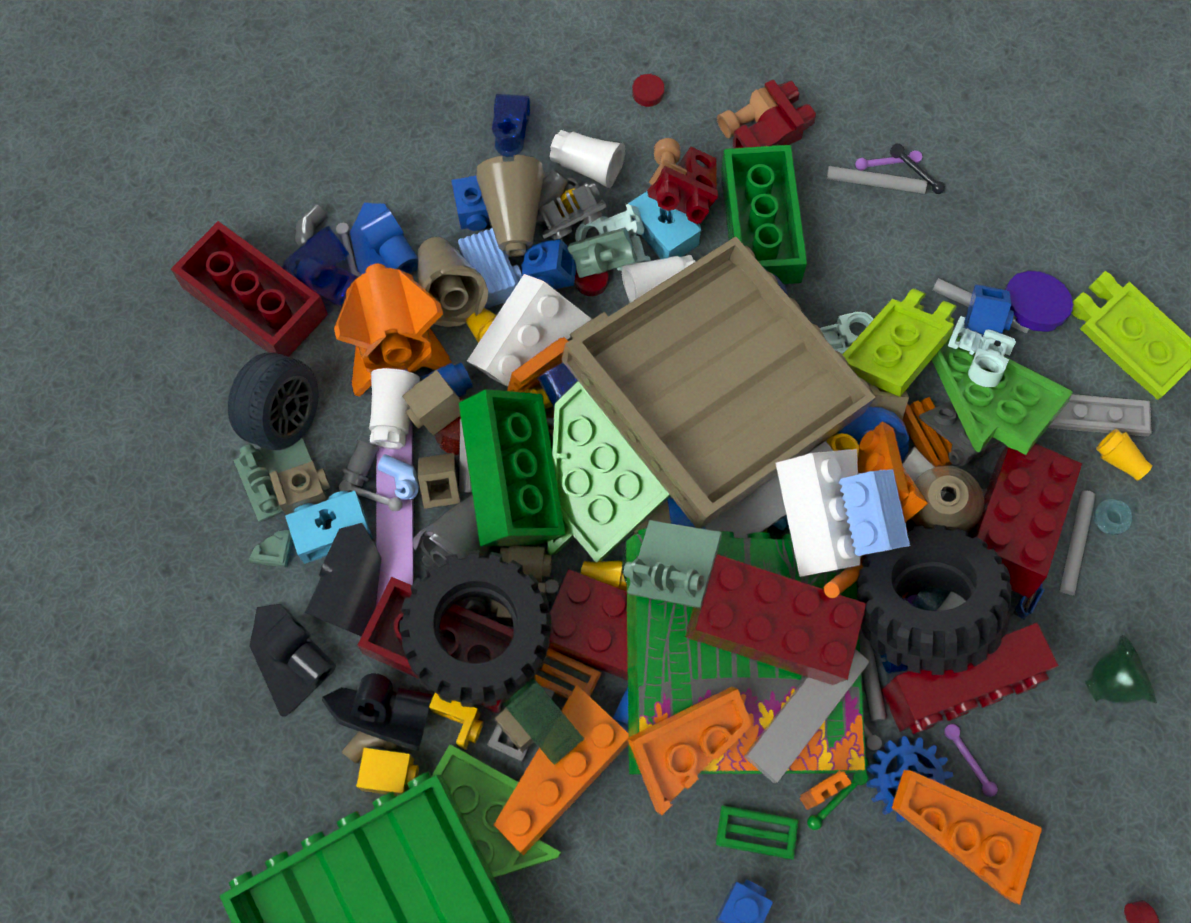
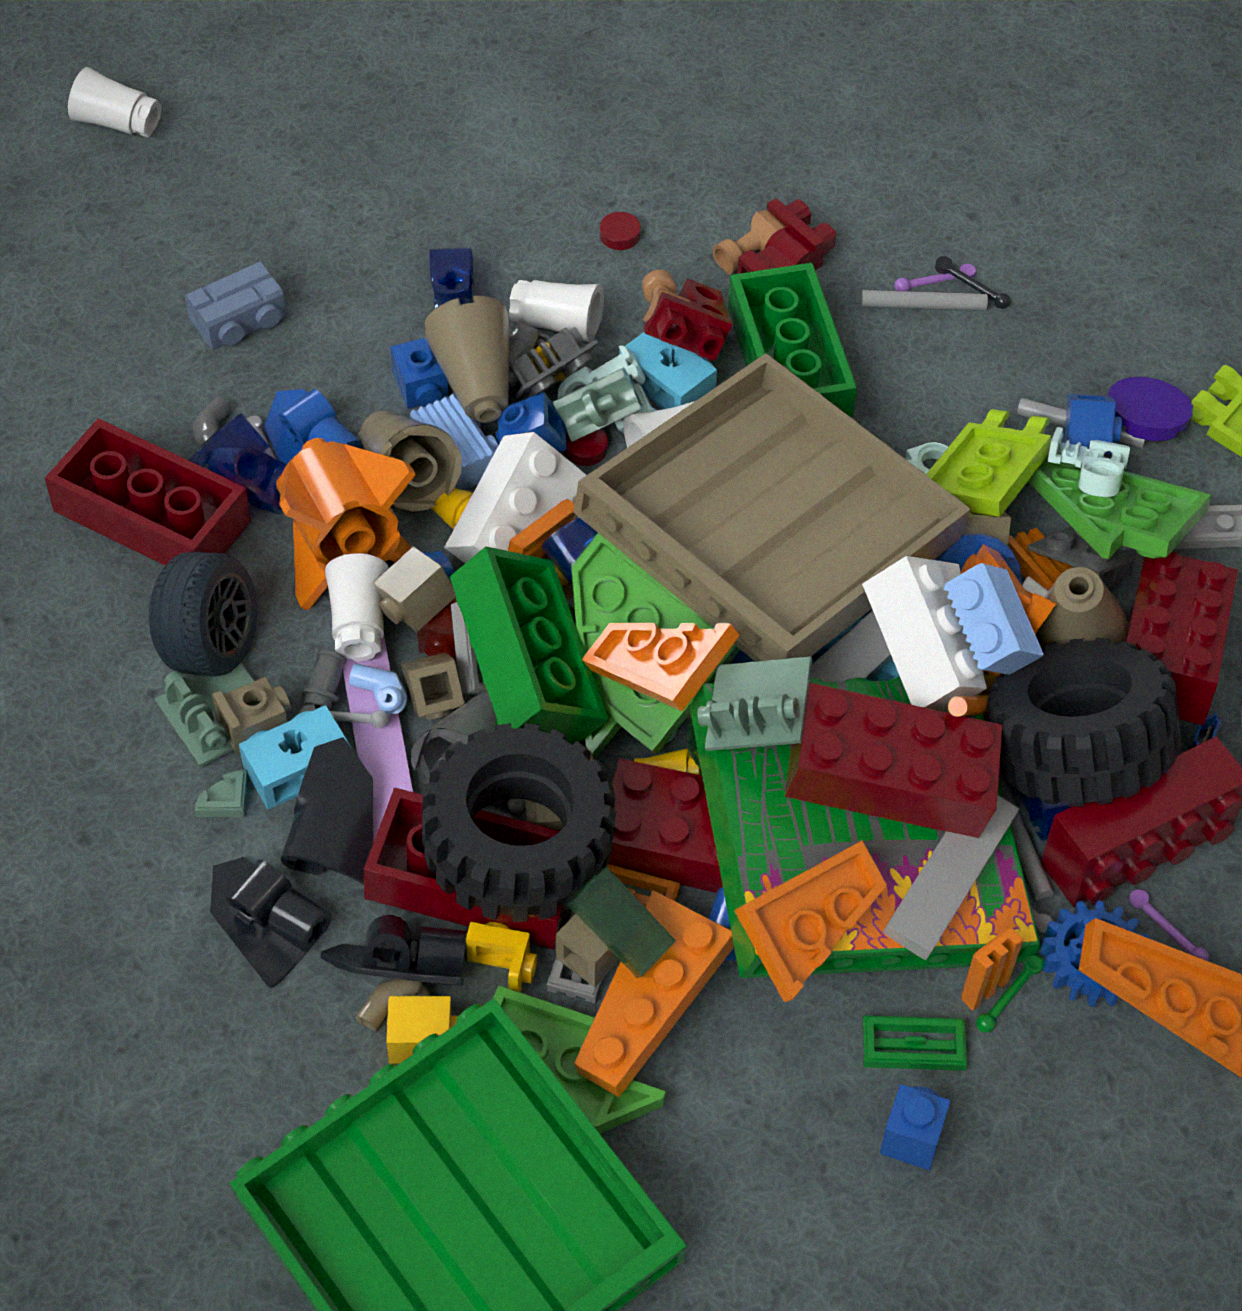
camera: 10 degrees left, 15 degrees down
(342, 126) = (236, 306): none -> sand blue brick
(607, 503) = (658, 661): none -> orange wing

